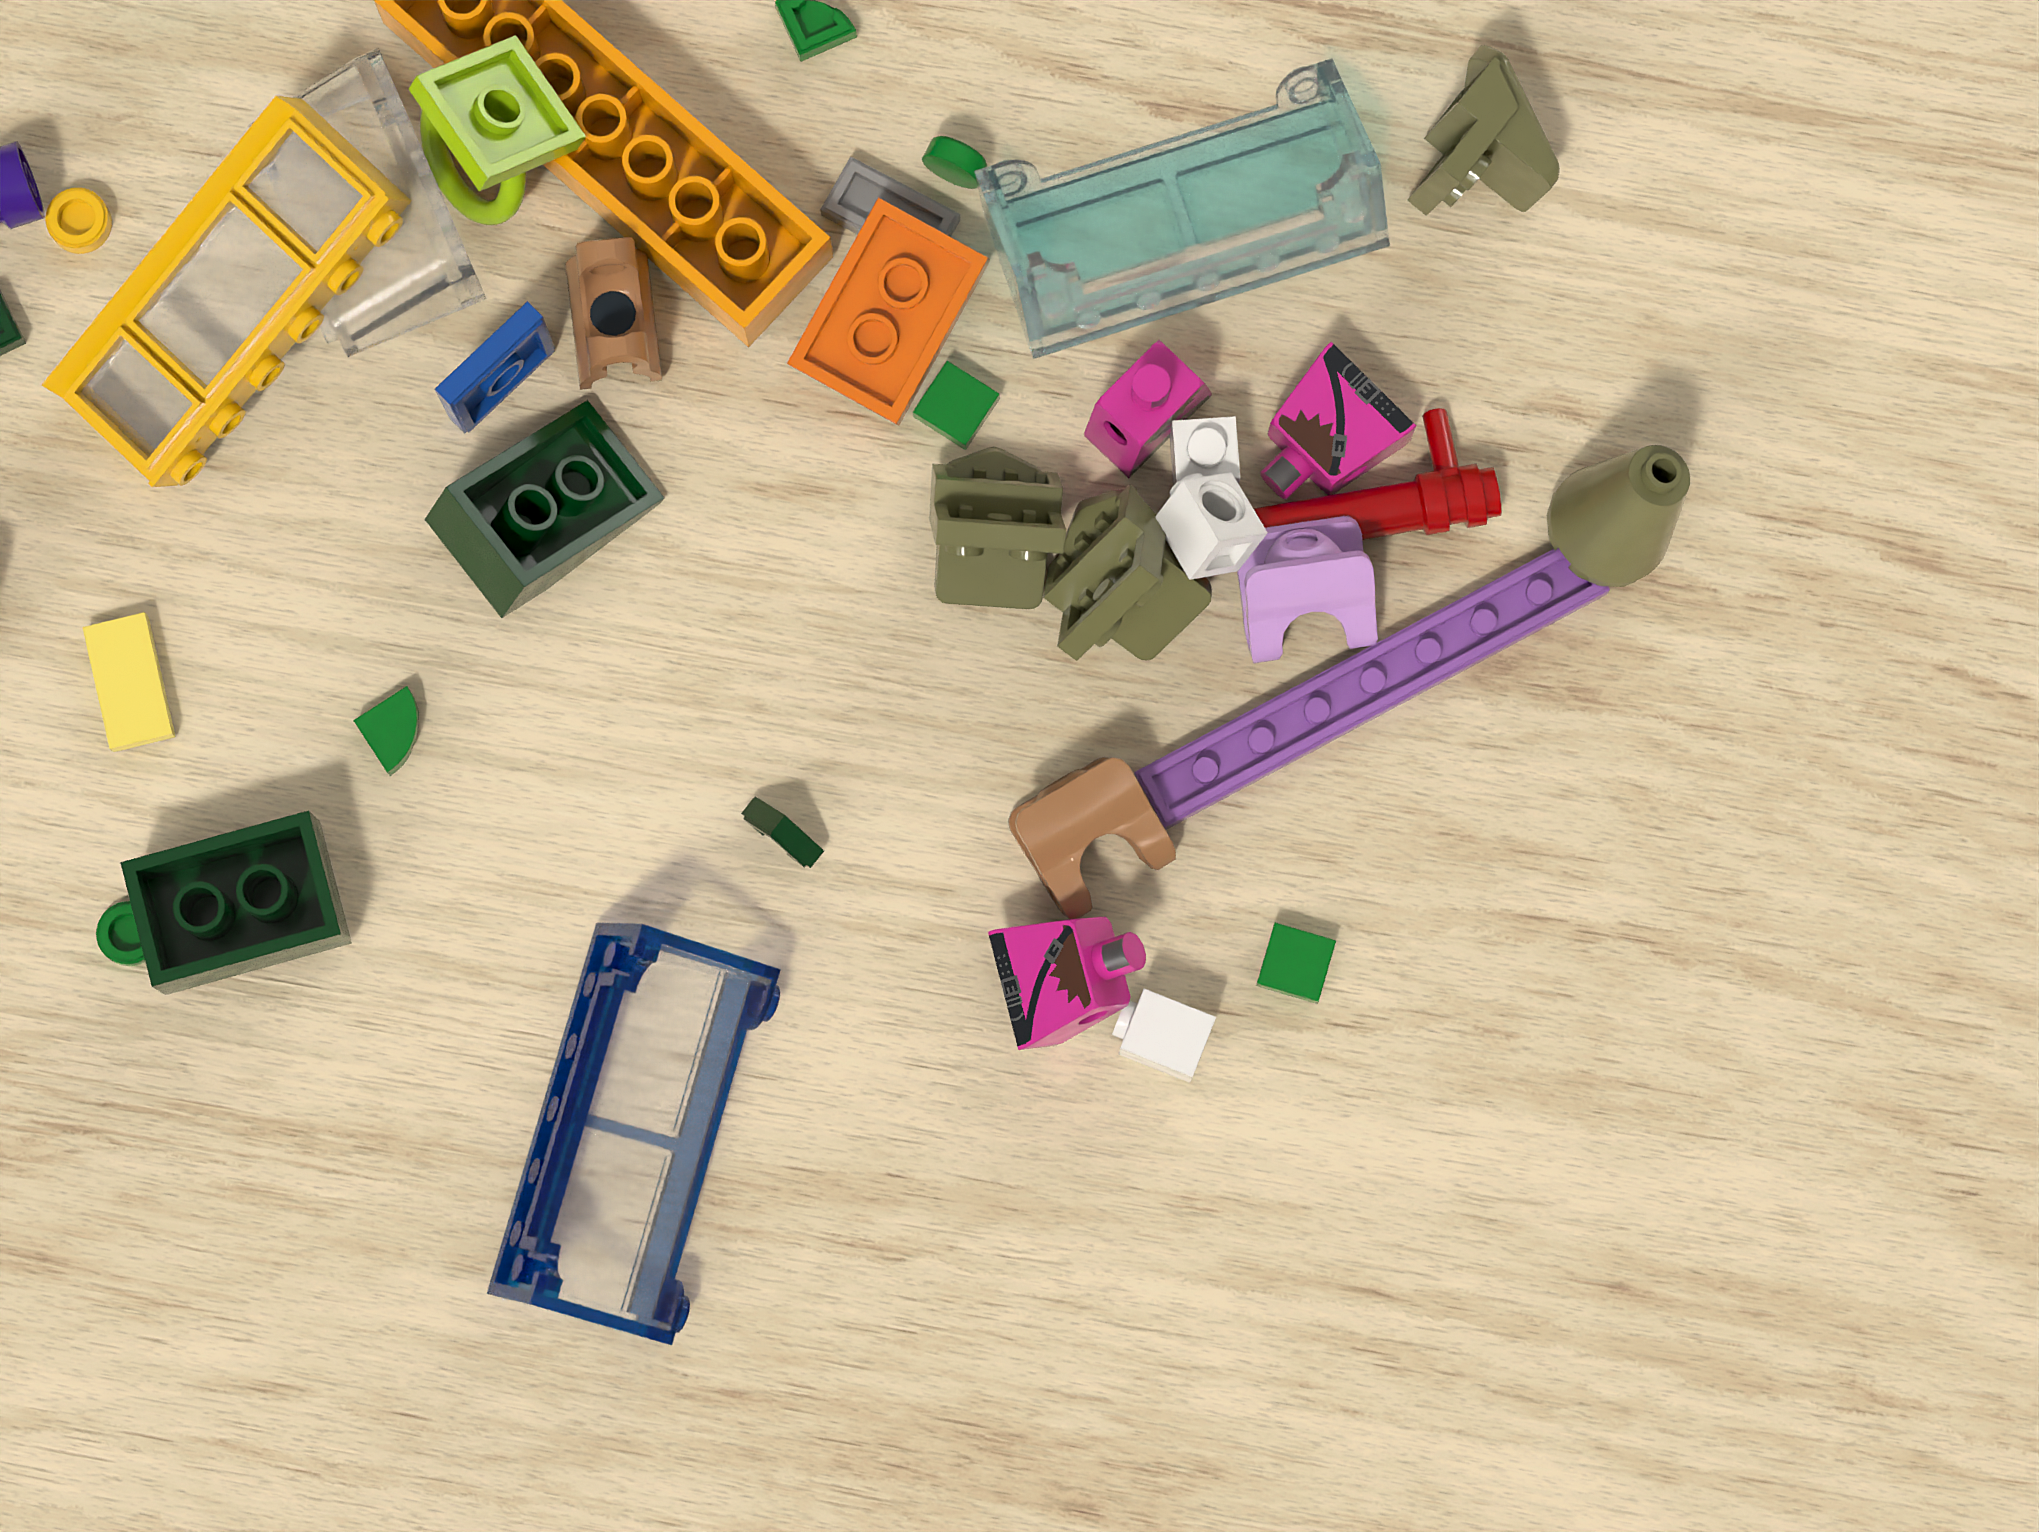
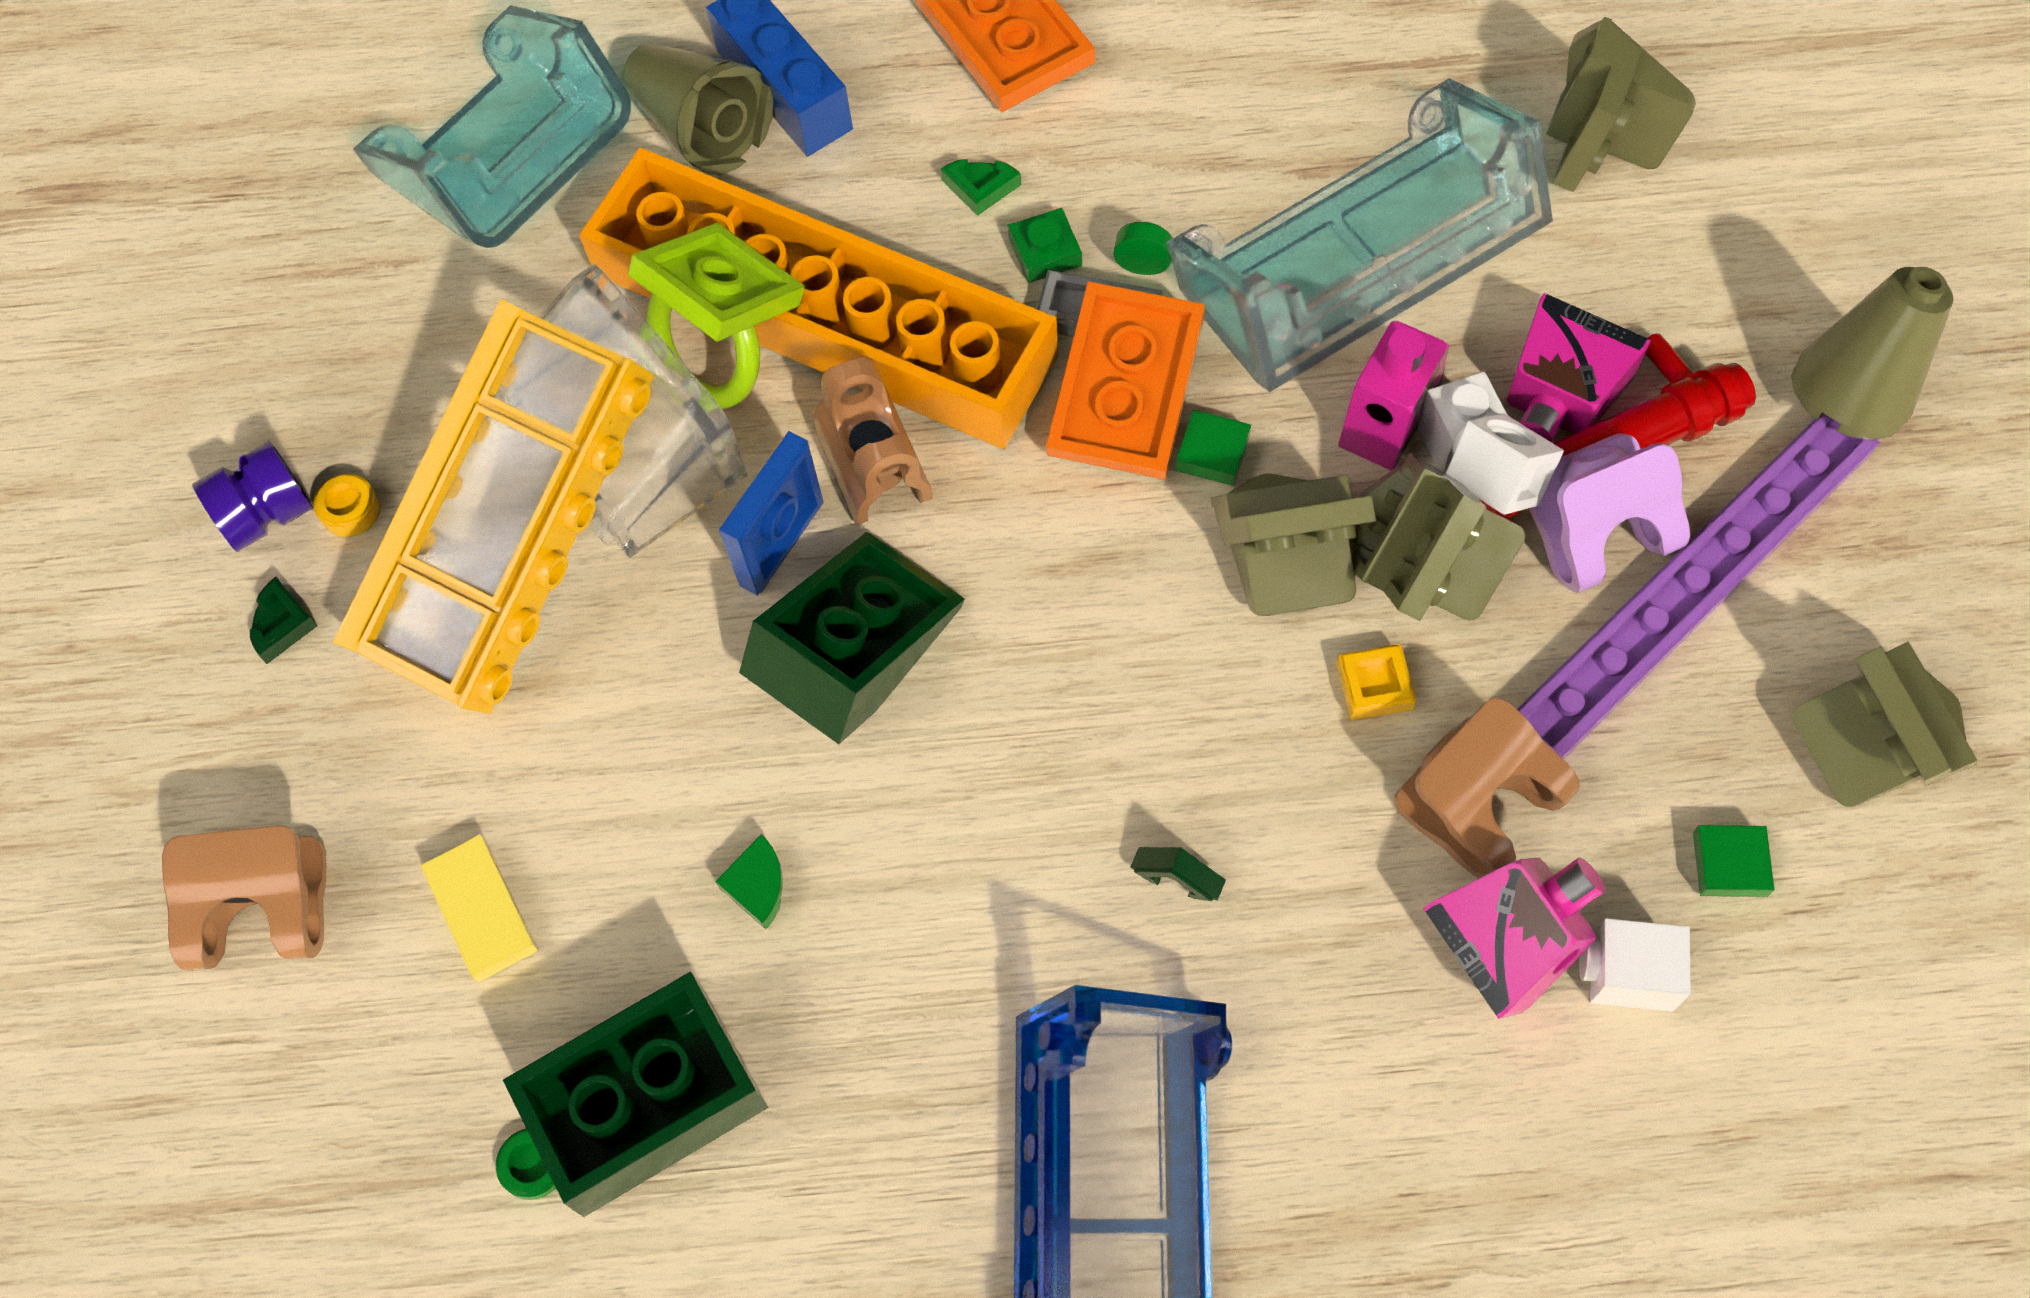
camera: 10 degrees left, 15 degrees down
(858, 122) = (1045, 244): none -> green plate
(1031, 696) = (1376, 682): none -> yellow tile
(1486, 881) = (1885, 728): none -> olive piece

